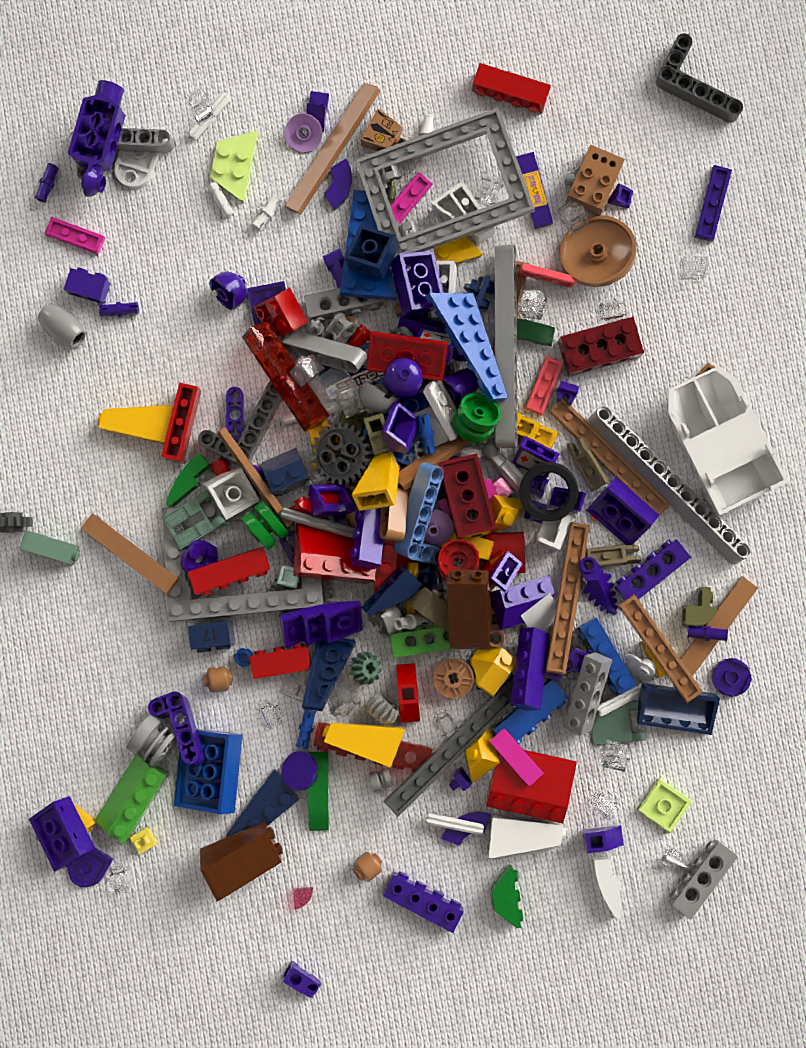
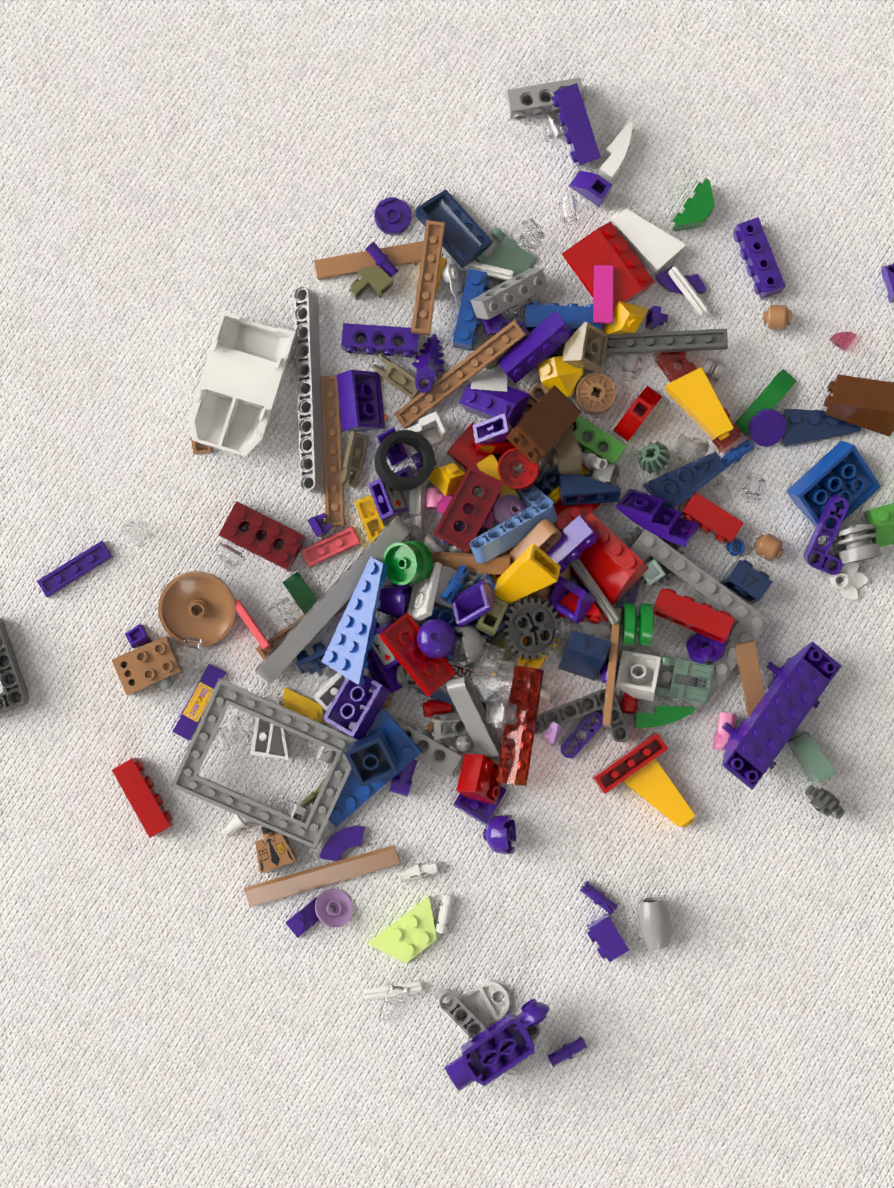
camera: 140 degrees left, 0 degrees up
(74, 235) = (582, 989): dark pink tile -> none
(100, 553) = (778, 714): none -> dark purple piece
(127, 506) = (721, 736): none -> bright pink piece
(134, 711) = (850, 580): none -> white plate
(256, 395) = (553, 733): none -> lavender slope
(382, 709) = (667, 416): light grey gear -> none
(410, 197) = (298, 782): dark pink tile -> none
(490, 703) = (586, 348): none -> dark tan slope
(659, 877) = (576, 124): none -> dark purple brick
(664, 805) = (524, 171): yellowish green tile -> none

